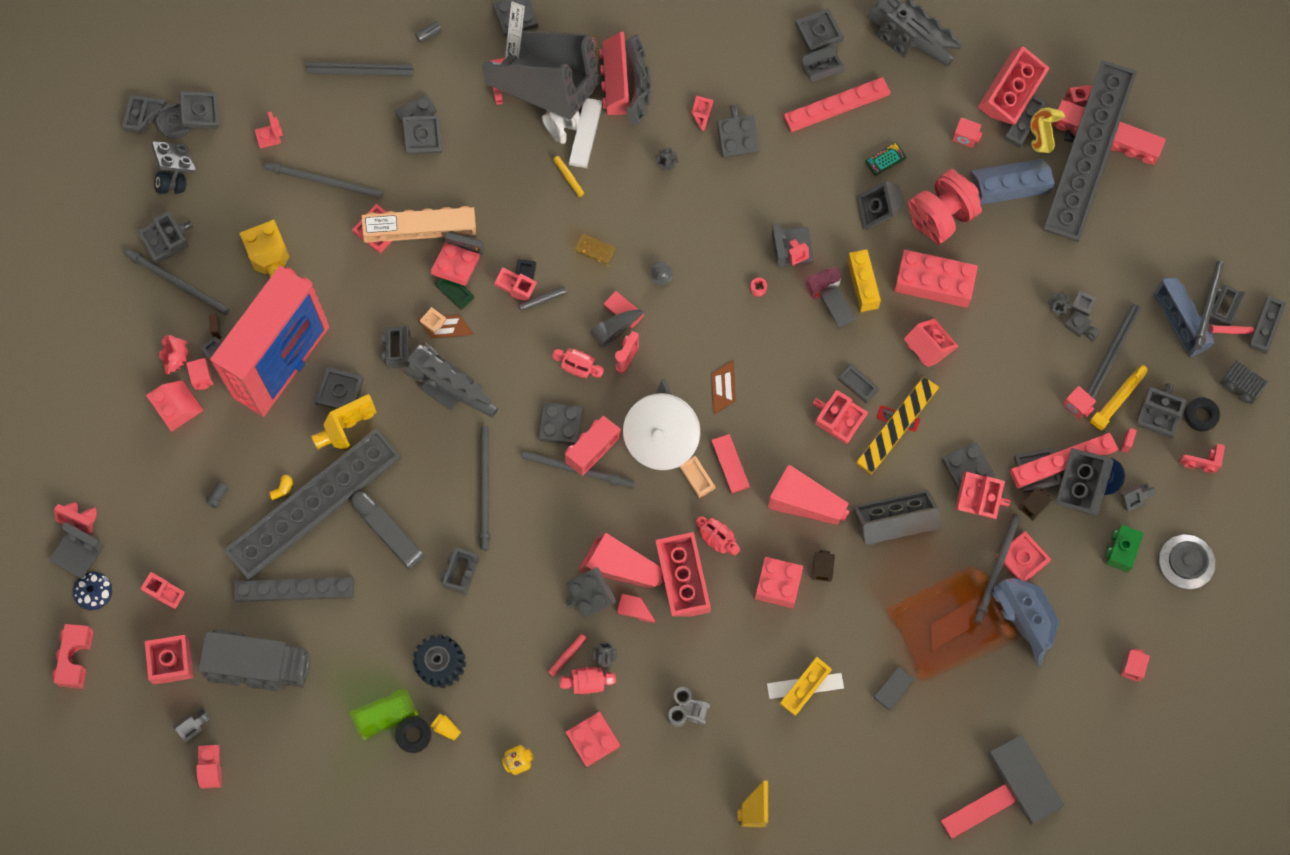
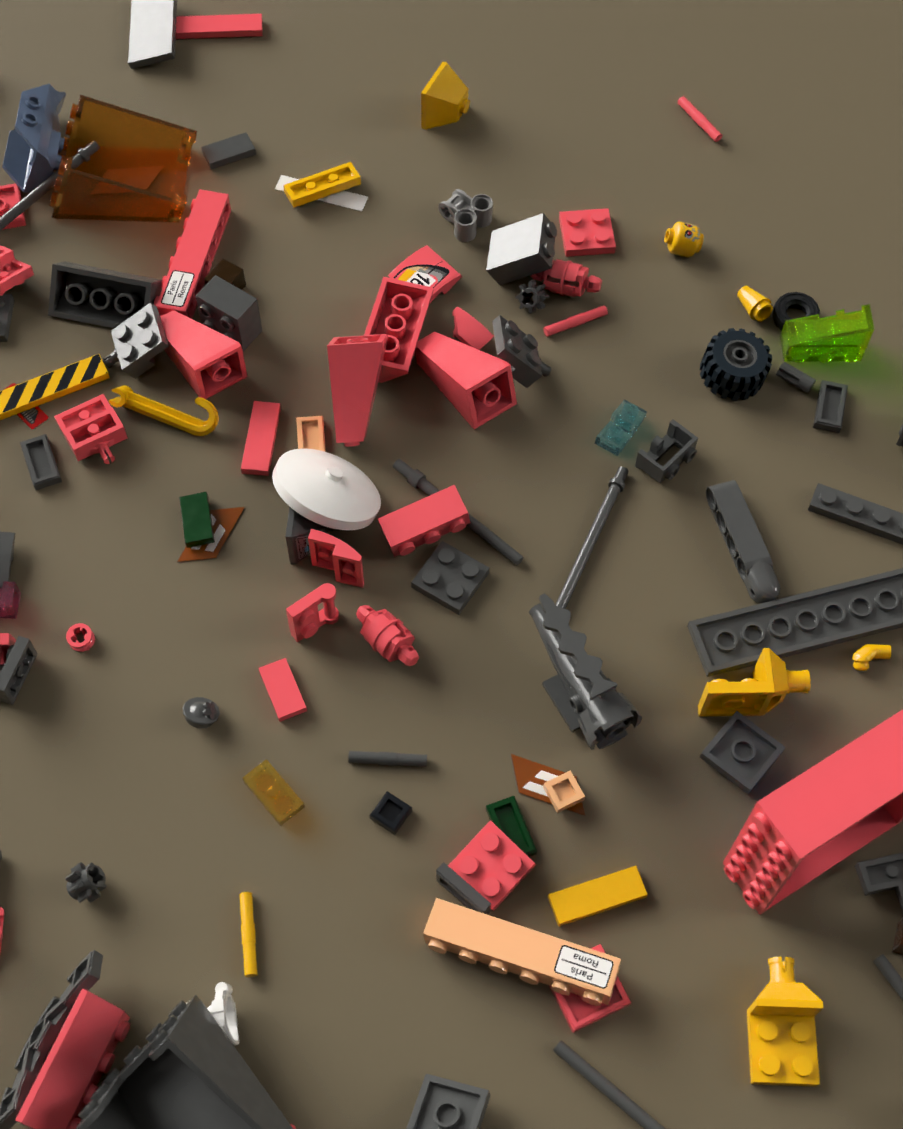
camera: 155 degrees left, 10 degrees down
(363, 666) = (830, 406): none -> dark grey tile
(391, 276) = (597, 895): none -> yellow tile
(394, 677) = (796, 377): none -> dark grey piece
(396, 362) = (624, 798): dark grey window -> none
(499, 581) = (621, 427): none -> clear light blue slope
(517, 285) = (416, 786): coral brick -> none
(585, 133) = (193, 980): white tile -> none
(609, 330) = (315, 663): dark grey piece -> none
(625, 393) = (338, 556): none -> coral slope
(628, 683) = (521, 249): none -> brick
(686, 513) = (354, 378): none -> coral slope
(689, 640) = (427, 269): none -> slope
(717, 535) = (317, 354): coral piece -> none
(736, 388) = (197, 519): none -> dark green tile
(775, 453) = (167, 414): none -> yellow piece
(779, 582) = (286, 285): coral brick -> none
(801, 533) = (229, 311): none -> dark grey brick
(848, 486) = (138, 341): none -> plate
(857, 577) = (194, 253): none -> coral brick

